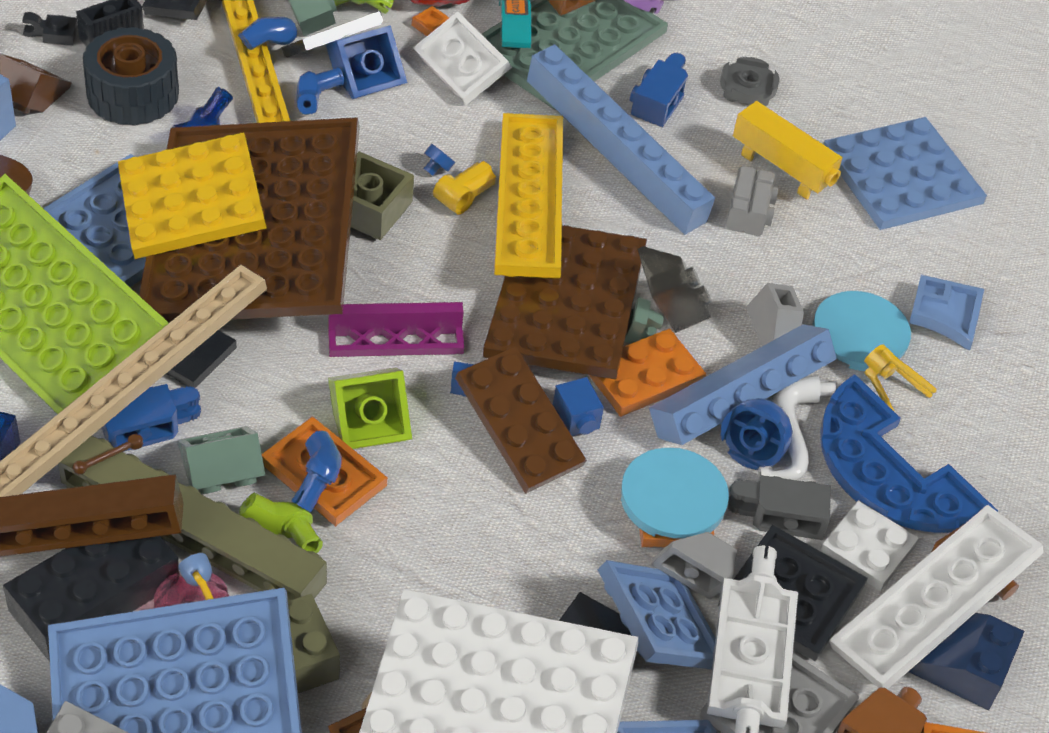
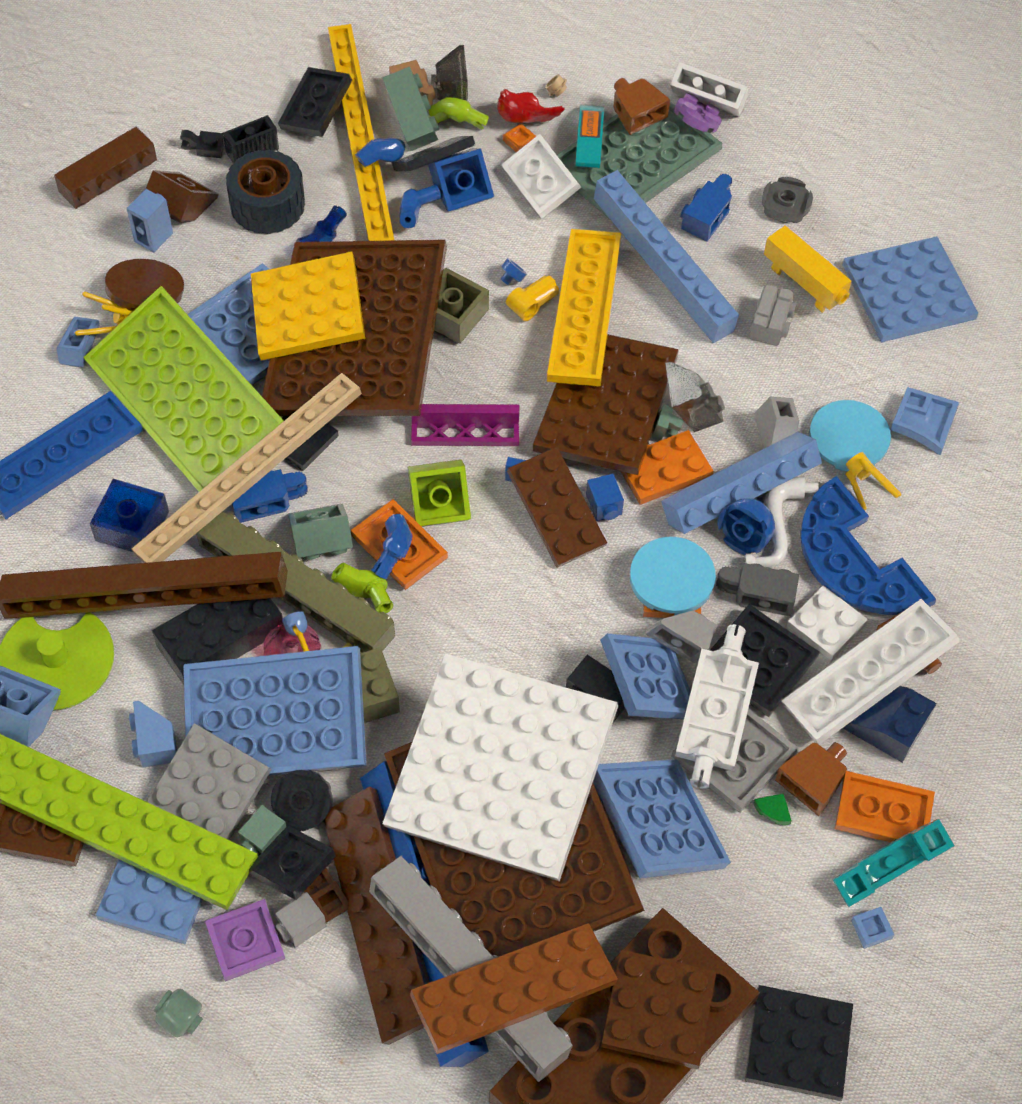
camera: 10 degrees right, 10 degrees up
(134, 442) = (254, 518): reddish brown hinge -> none

